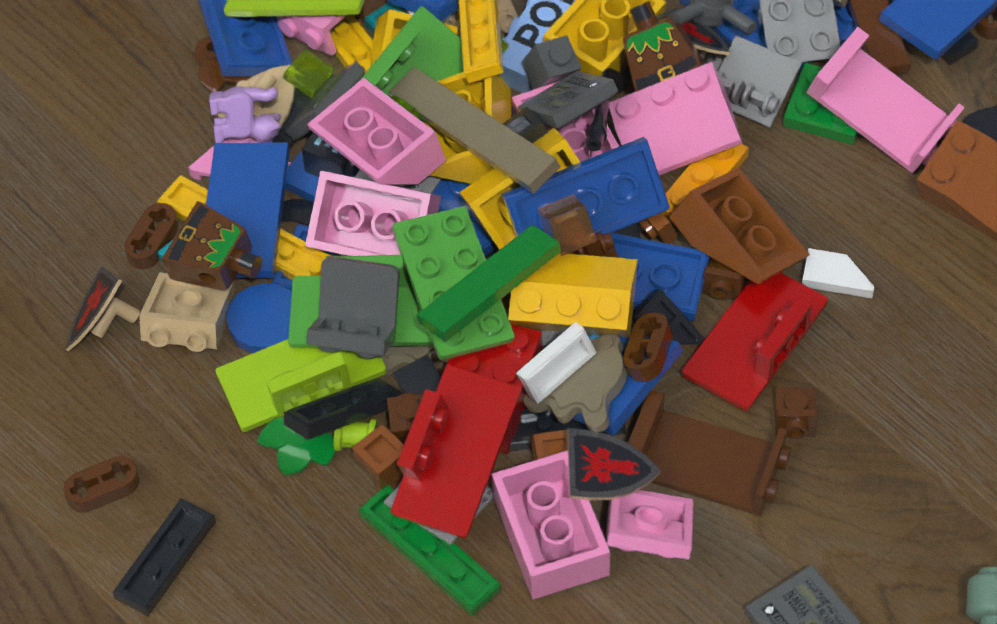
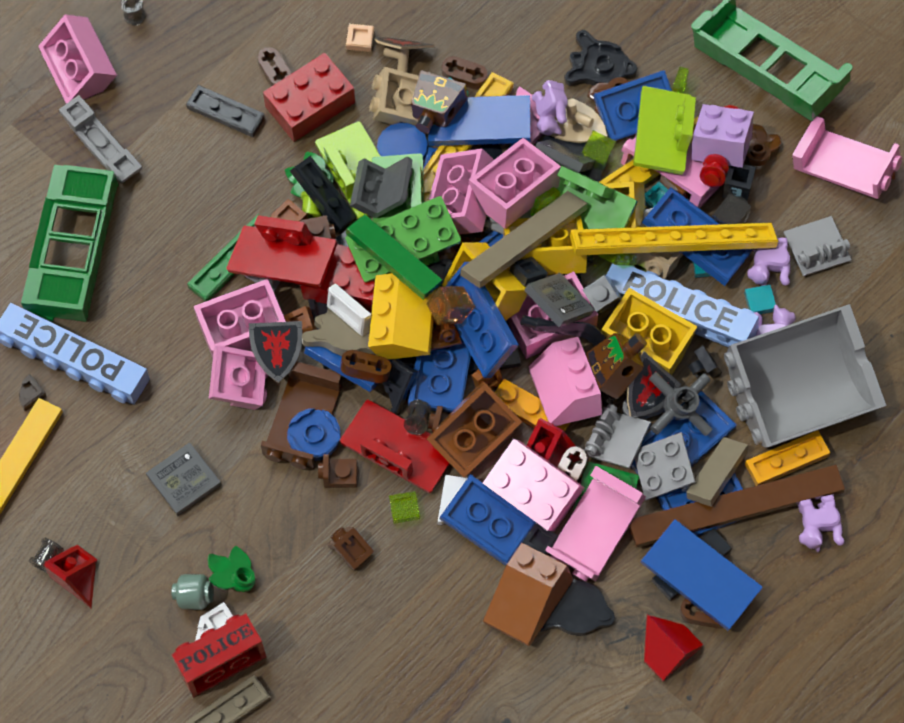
camera: 85 degrees right, 10 degrees up
(64, 369) = (360, 37): none -> light nougat tile
(161, 77) = (598, 62): none -> black tile
(166, 430) = (309, 97): none -> brick
(719, 301) = (421, 414): none -> clear smoke bush
(743, 448) = (314, 433): none -> blue tile
(764, 161) = (551, 442): none -> red slope
(801, 133) = (578, 469): none -> beam
(827, 167) = (533, 485): none -> brick
(848, 334) = (404, 507): none -> clear neon green tile
(870, 232) = (487, 520): none -> blue tile
(896, 179) = (540, 538): none -> black tile
(912, 397) = (350, 546): none -> reddish brown bracket
(956, 549) = (230, 570): none -> green plate

